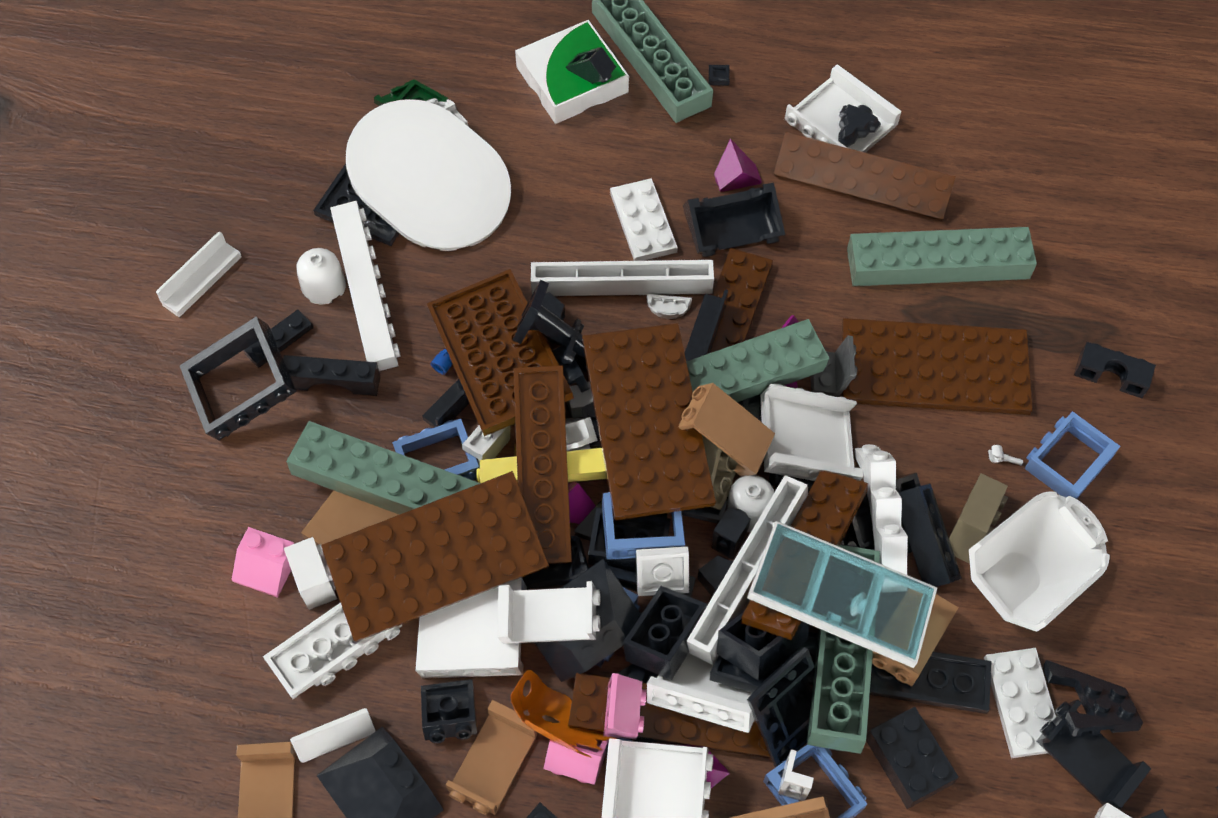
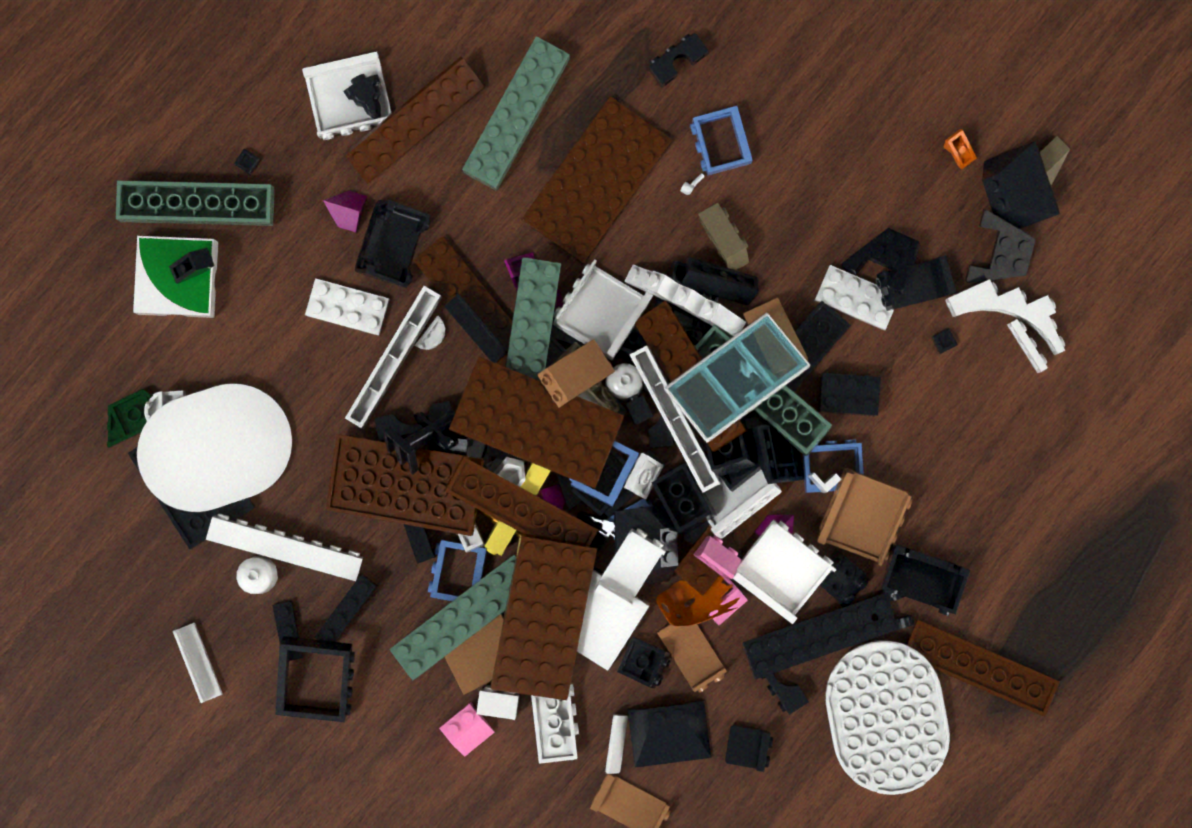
camera: 60 degrees left, 25 degrees up
(441, 362) = (381, 526): blue hose -> none
(838, 371) = (560, 252): dark grey bracket -> none
(1040, 559) = (780, 219): white windscreen -> none

